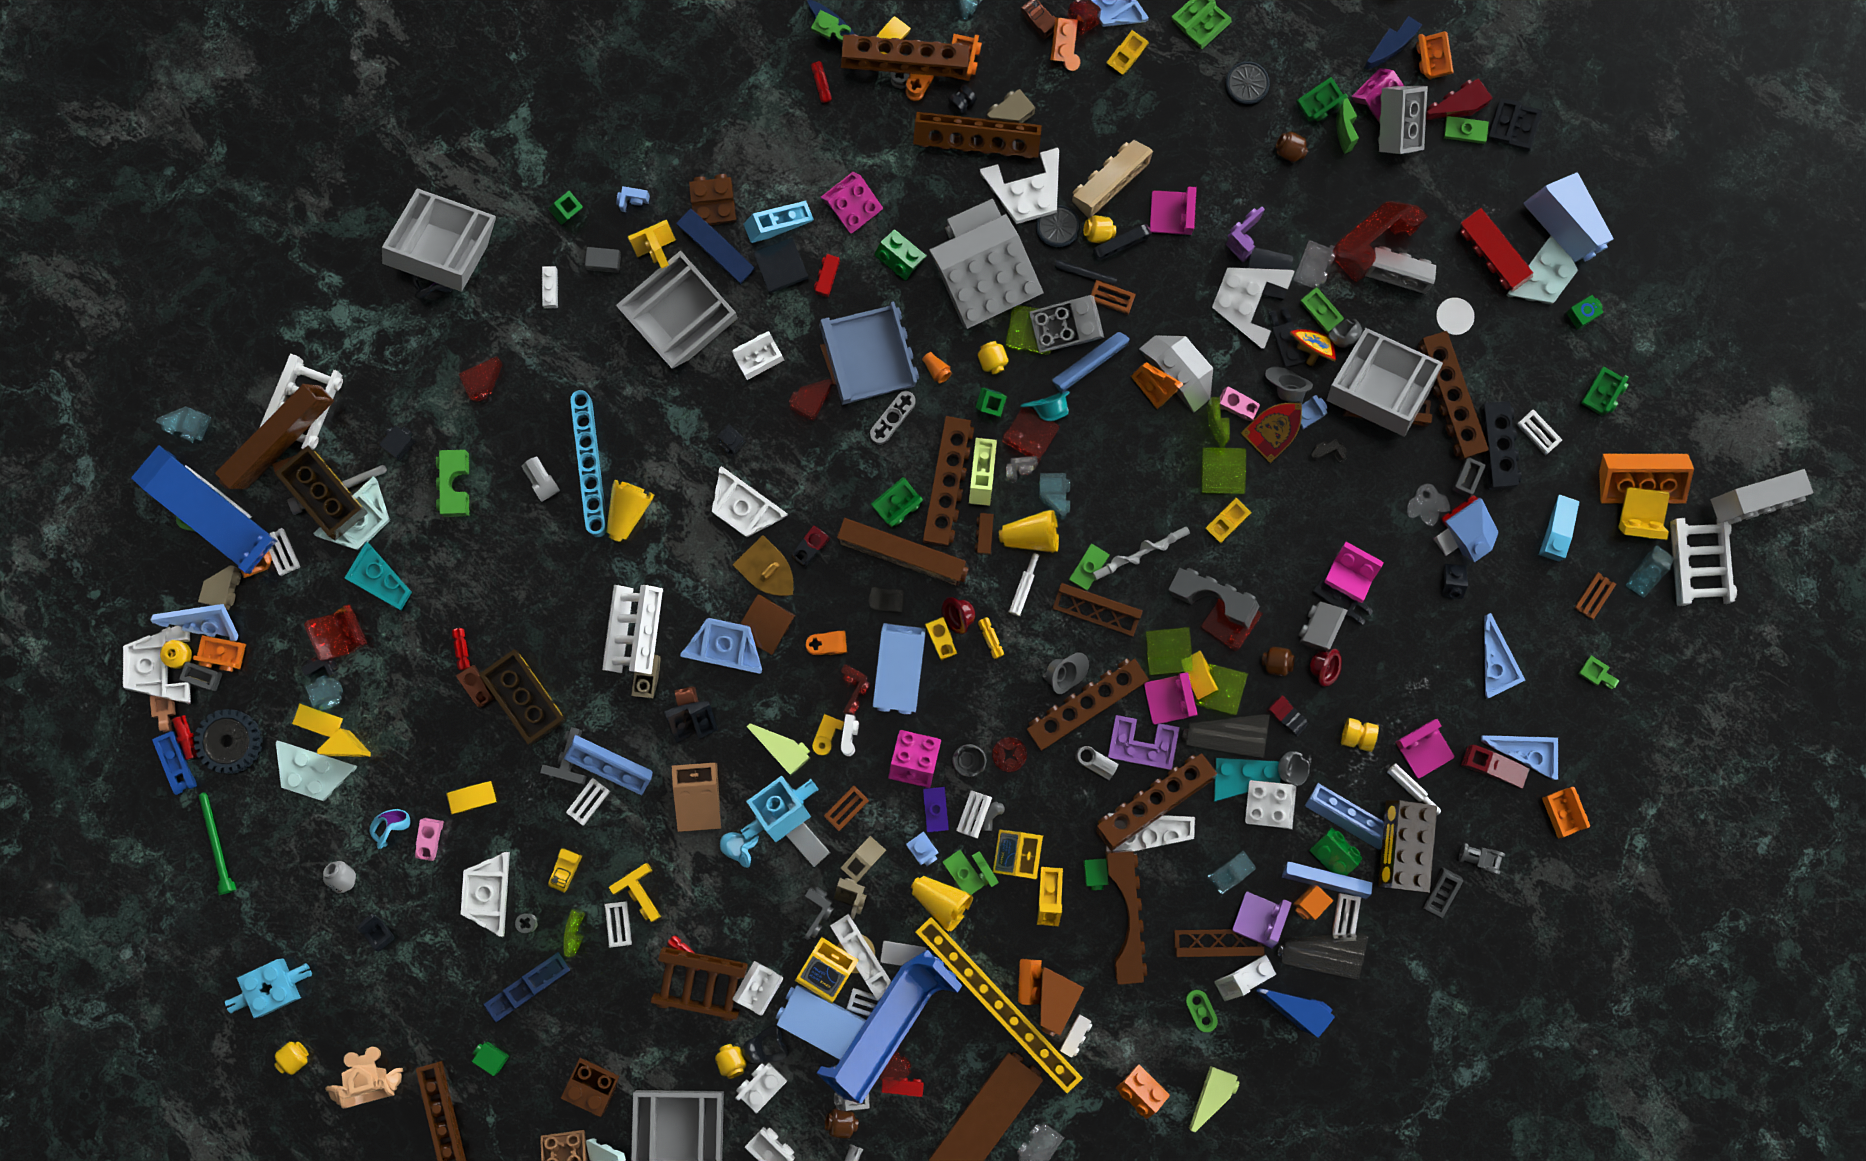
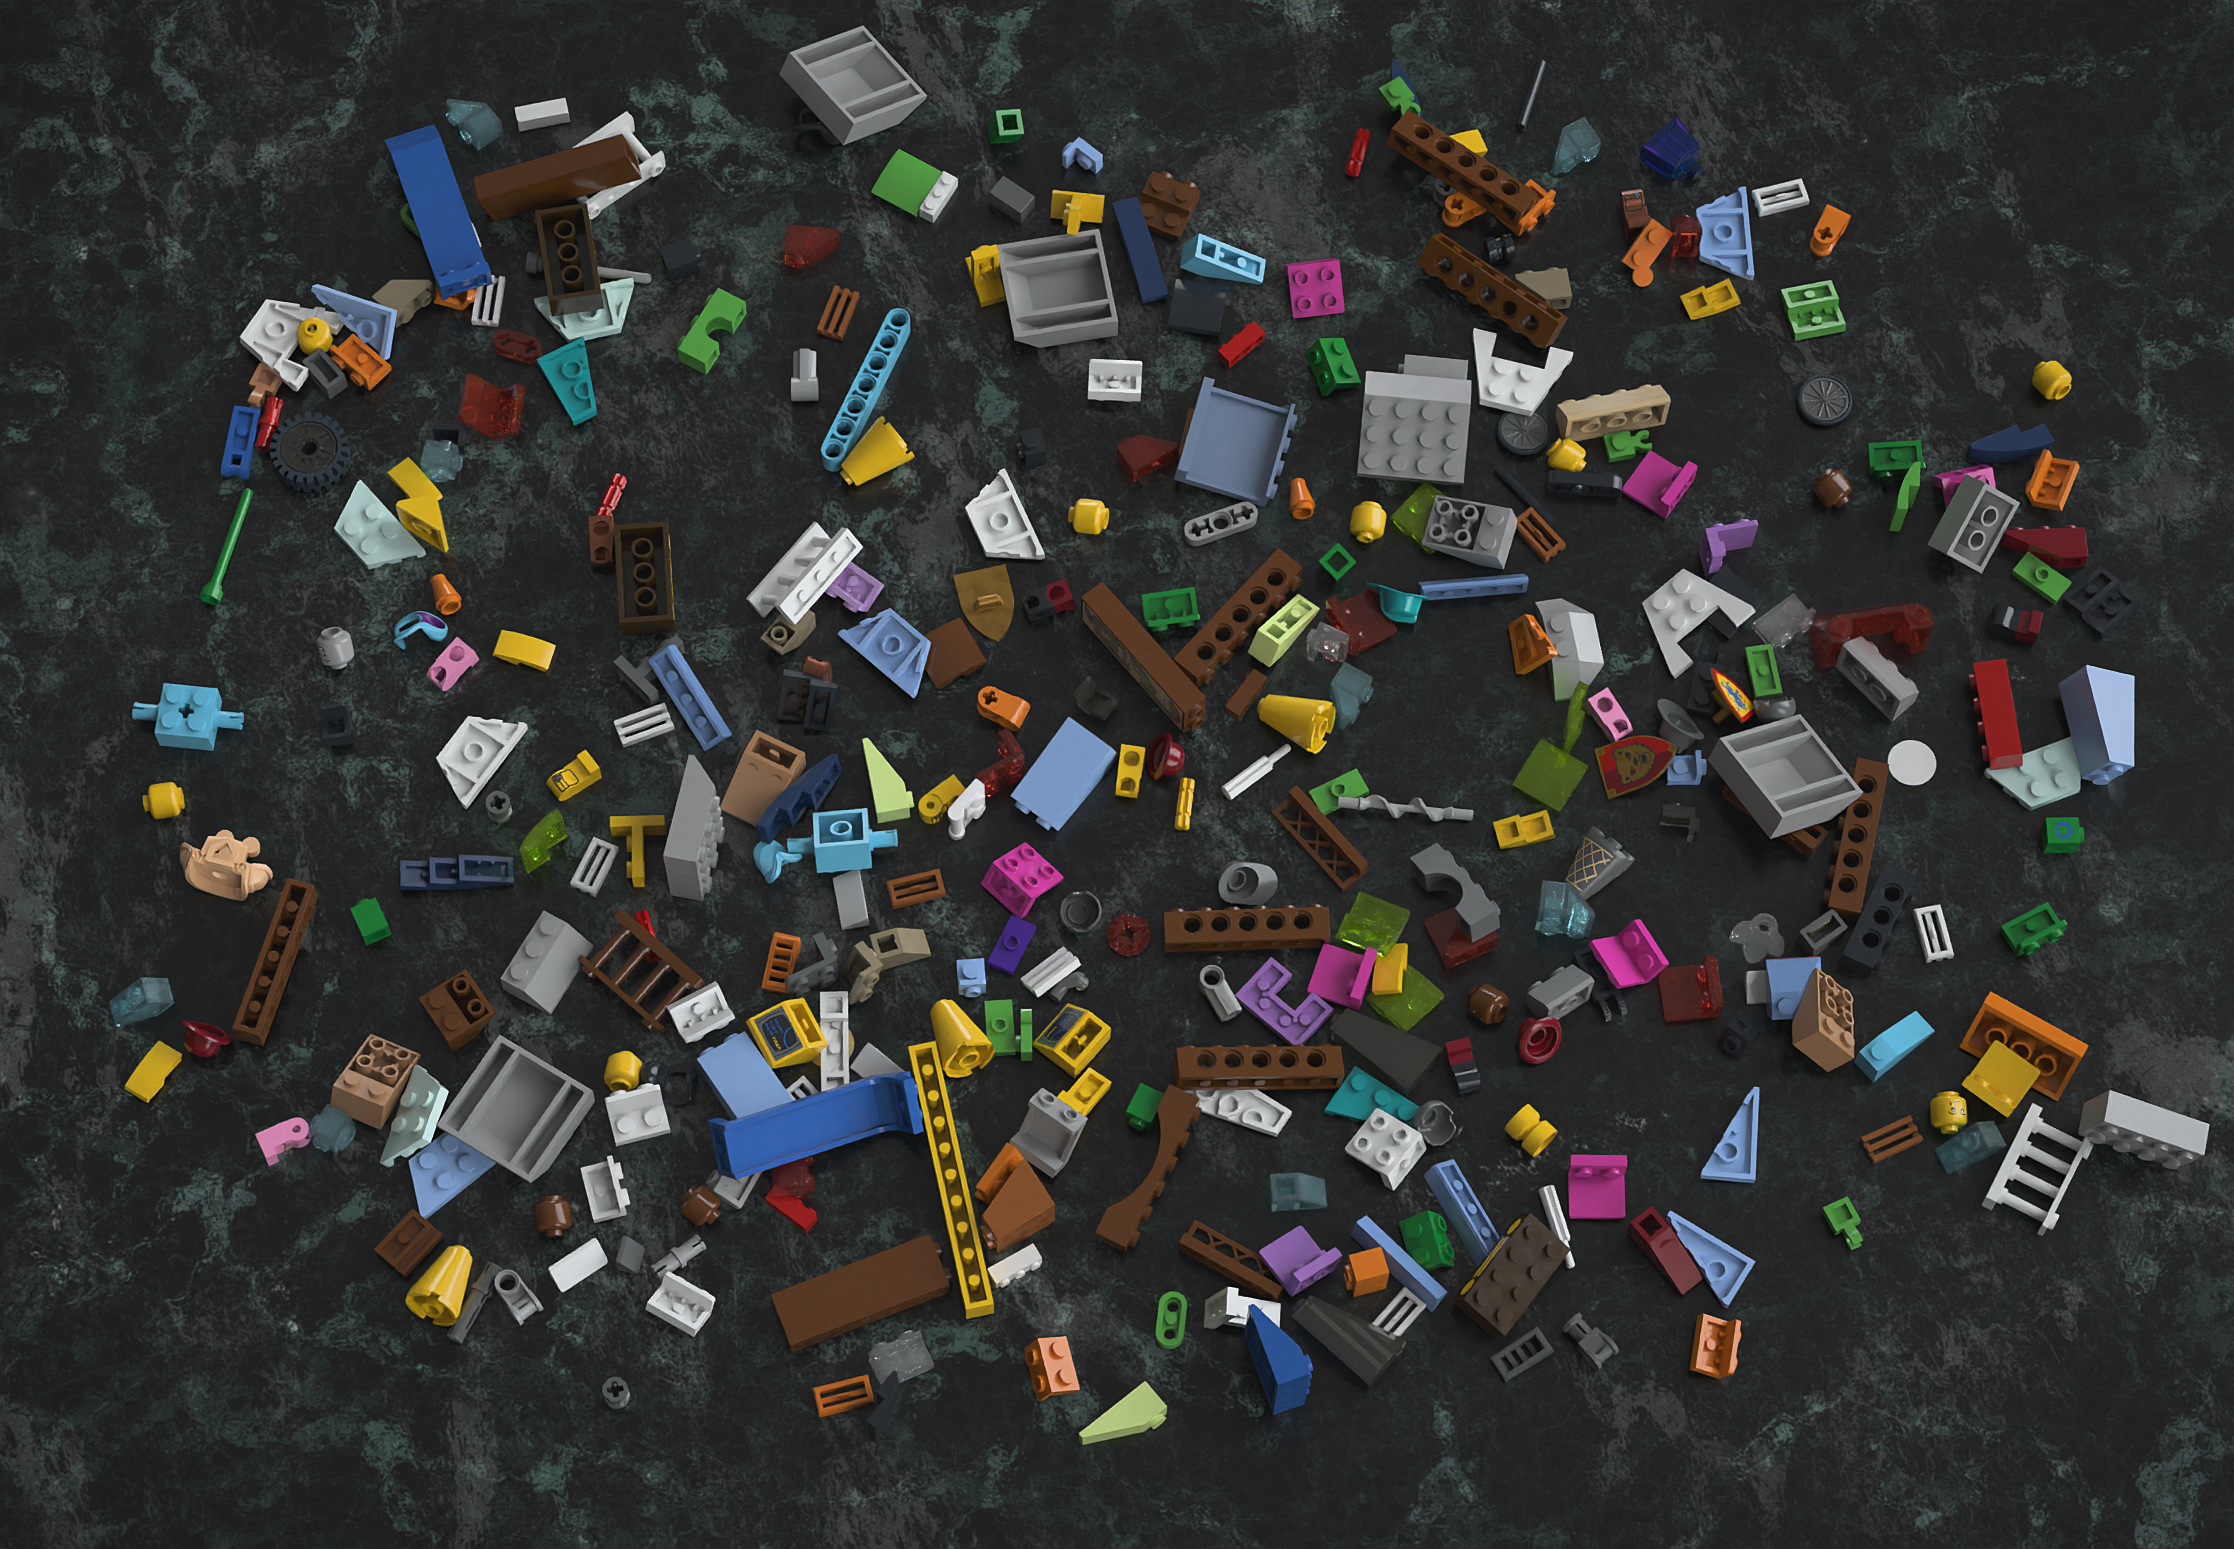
camera: 30 degrees right, 15 degrees down
(229, 387) = (542, 114): none -> white slope
(322, 569) = (517, 345): none -> clear red beam
(390, 790) = (445, 596): none -> orange cone
(521, 289) = (906, 182): none -> bright green slope
(529, 399) = (845, 294): none -> dark orange tile
(619, 328) = (985, 274): none -> yellow bracket
(630, 1015) = (546, 963): none -> light grey slope
(674, 616) = (855, 588): none -> lavender bracket
(677, 870) = (693, 835): none -> light grey slope
(731, 786) = (803, 793): none -> dark blue slope
(776, 903) = (785, 940): none -> orange slope
(800, 467) = (1089, 516): none -> yellow head
(1045, 935) = (1048, 1132): none -> light grey panel
(1131, 197) = (1622, 446): none -> bright green plate
(1291, 565) = (1563, 911): none -> clear light blue slope
(1293, 520) = (1597, 863): none -> dark grey cone
(1407, 570) = (1691, 991): none -> clear red bracket
(1469, 174) = (2015, 623): none -> leg
(1510, 542) = (1825, 1022): none -> medium nougat slope
(1623, 556) = (1948, 1112): none -> yellow head

